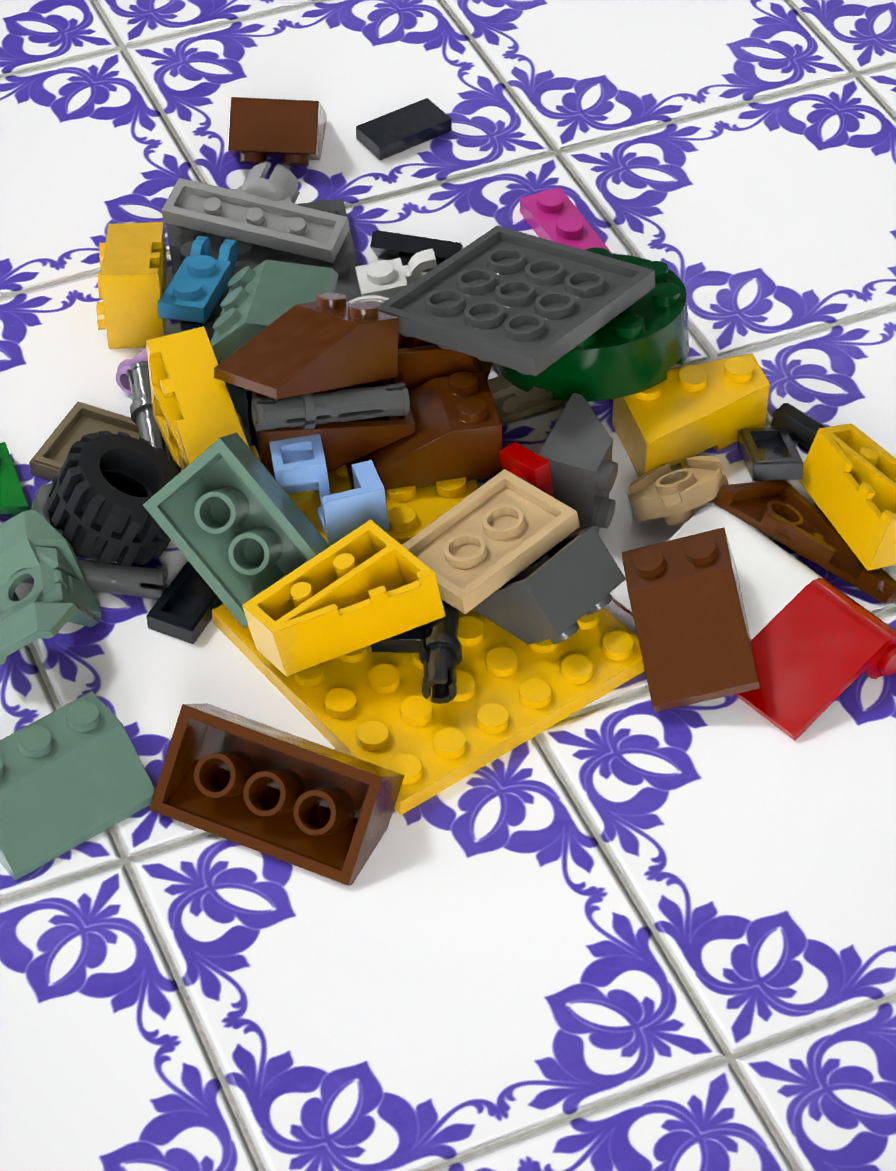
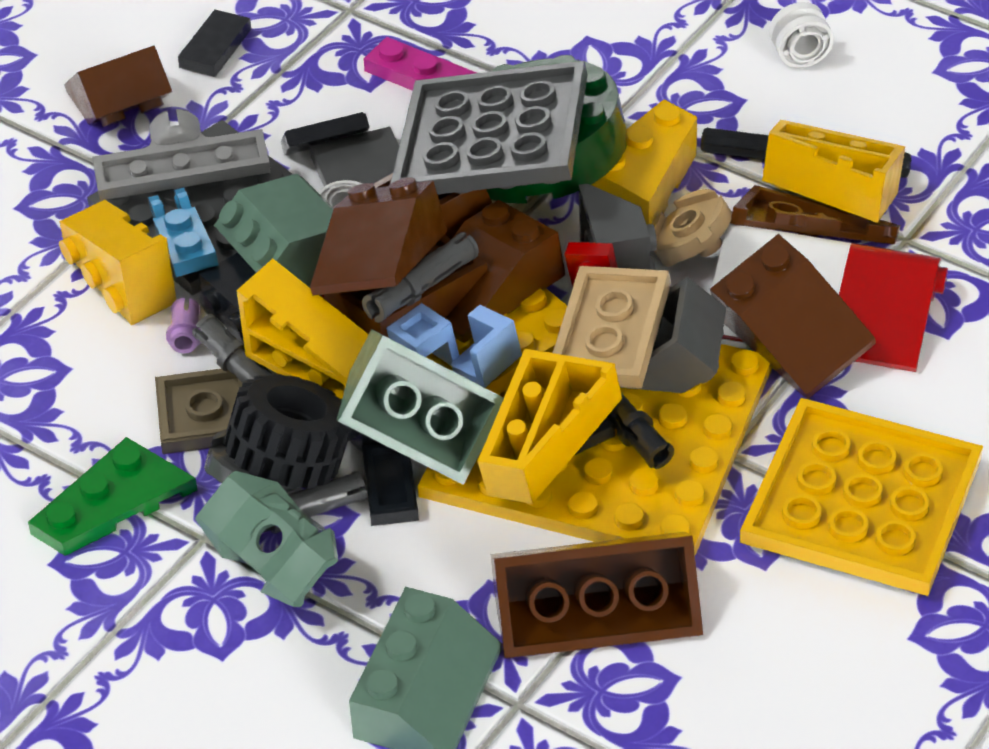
camera: 30 degrees left, 0 degrees up
(390, 277) = (332, 165): white plate -> none
(619, 833) = (862, 496): none -> yellow plate
(770, 454) = (729, 171): black tile -> none

